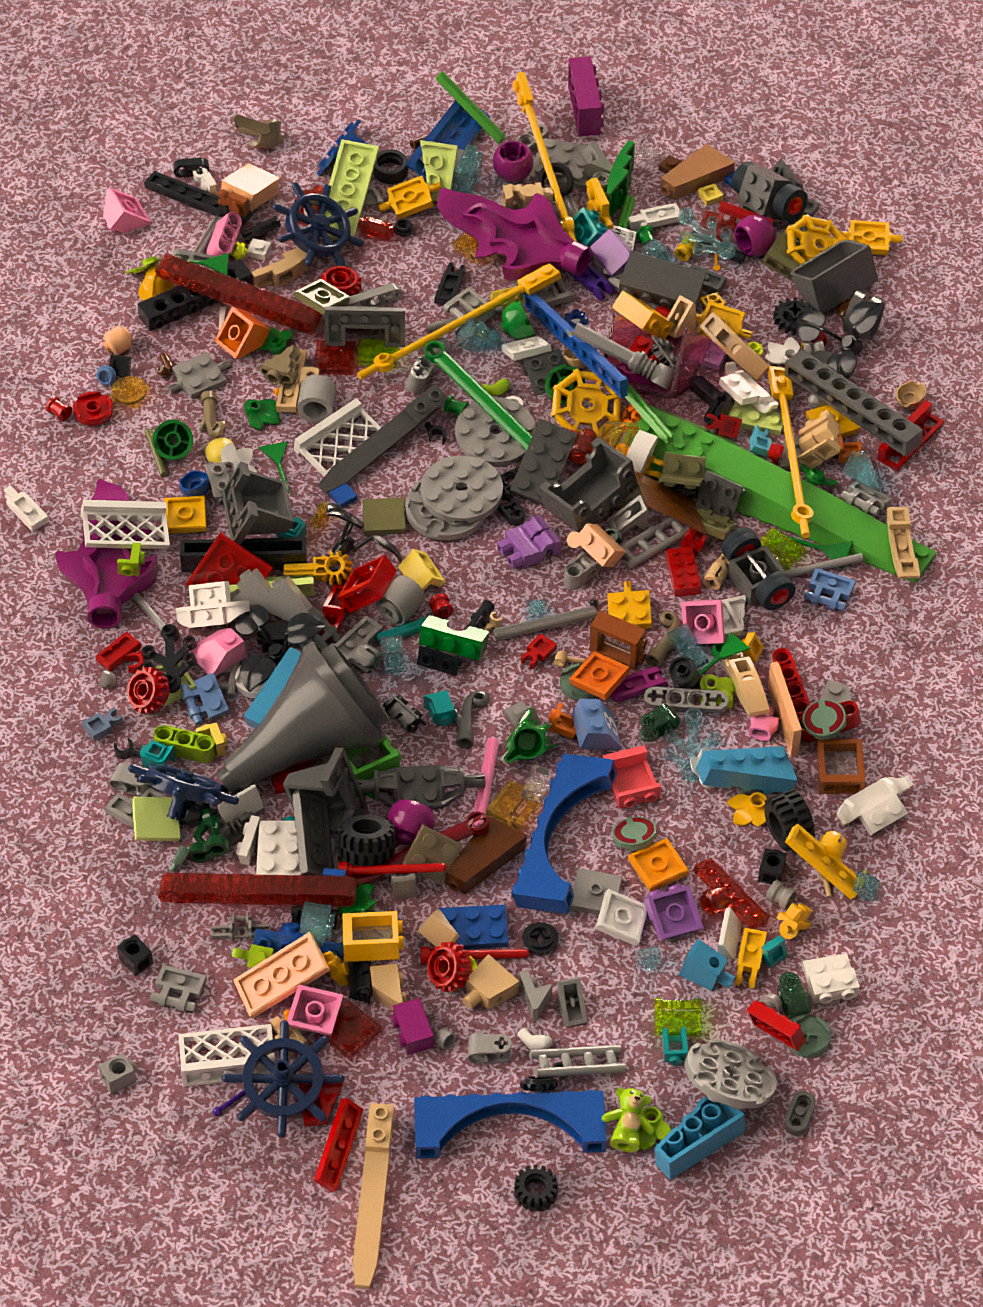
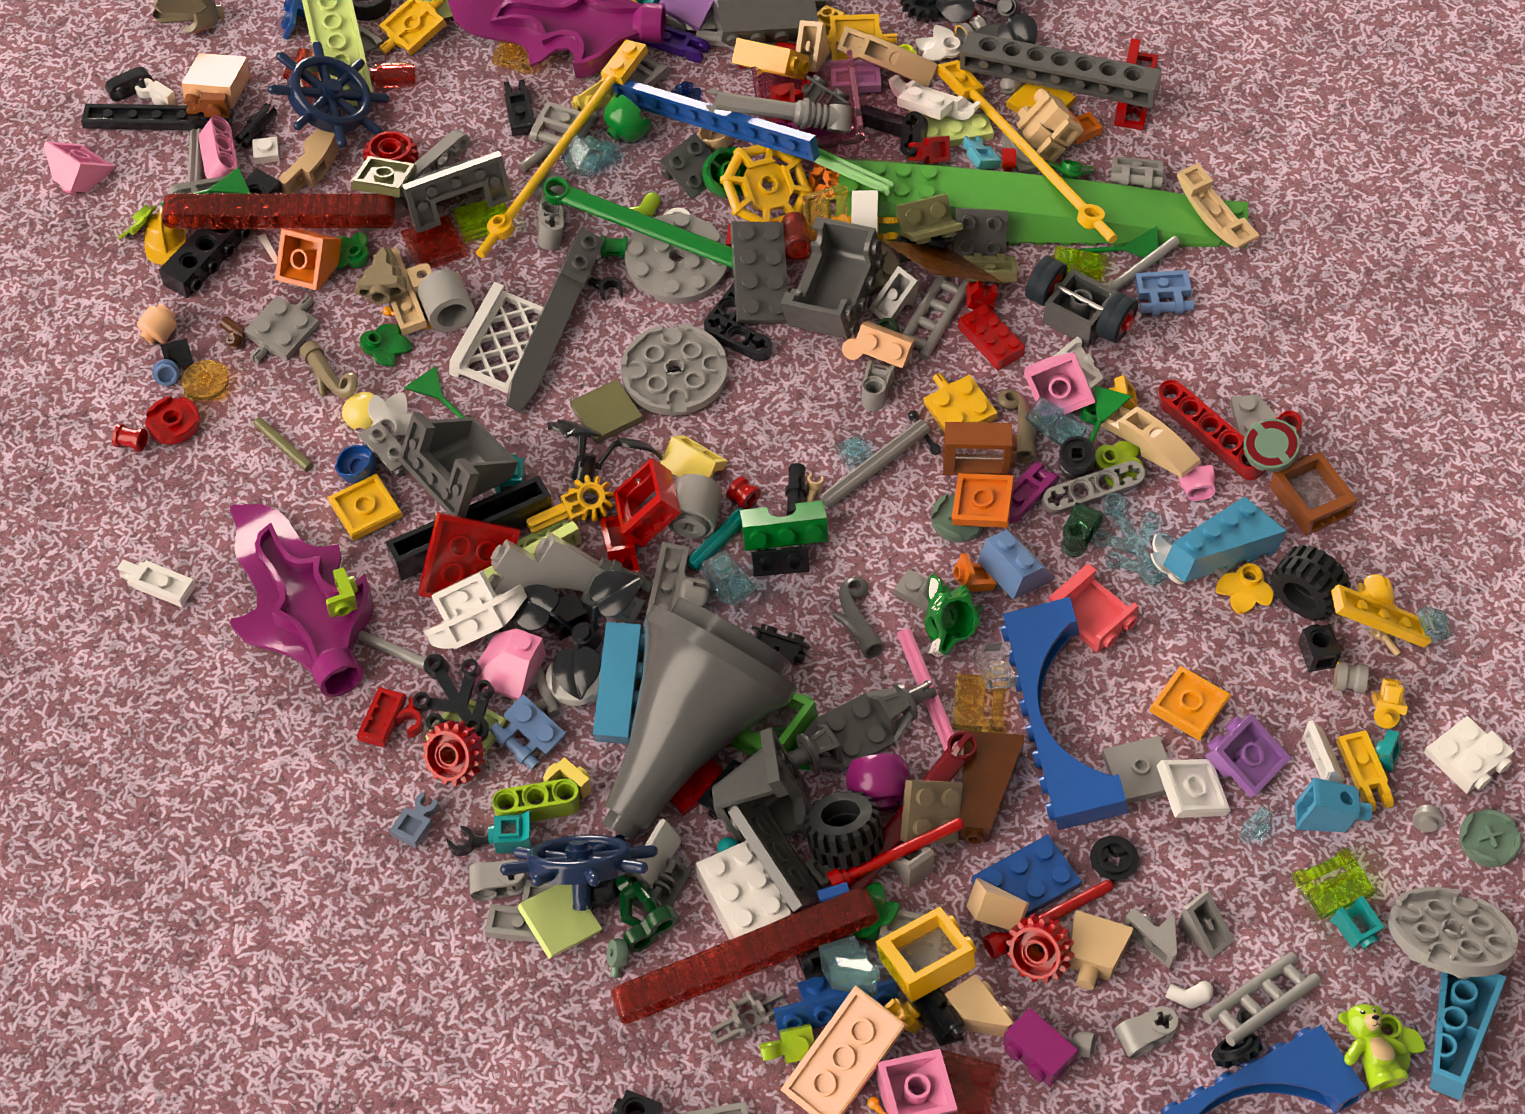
camera: 25 degrees left, 5 degrees up
(107, 679) = (389, 759): light grey hinge -> none
(124, 512) = (295, 536): white fence -> none
(173, 439) = (300, 419): green cylinder -> none
(239, 251) = (245, 160): neon yellow plate -> none
(246, 848) = (690, 880): white plate -> none
(319, 516) = (531, 434): clear yellow pin -> none
(343, 495) = (542, 405): blue tile -> none
(403, 227) = (424, 62): black plate -> none
(440, 708) = (820, 620): teal window -> none
(447, 503) = (676, 365): light grey plate -> none
(526, 347) = (653, 147): white plate -> none
(529, 543) = (796, 382): medium lavender hips -> none
(537, 650) = (888, 499): red plate -> none
(562, 657) = (920, 496): tan hand -> none
(634, 833) = (1140, 676): sand green tile -> none
(718, 568) = (1031, 323): tan hinge -> none
(725, 893) = (1291, 705): clear red plate -> none
(776, 1025) = (1458, 843): red piece -> none
(784, 709) = (1229, 463): light nougat tile -> none
(793, 997) = (1448, 796): clear green piece -> none
(863, 469) = (1115, 141): clear light blue slope -> none
(876, 805) = (1380, 521): white plate -> none
(911, 395) = (1108, 39): tan hair -> none

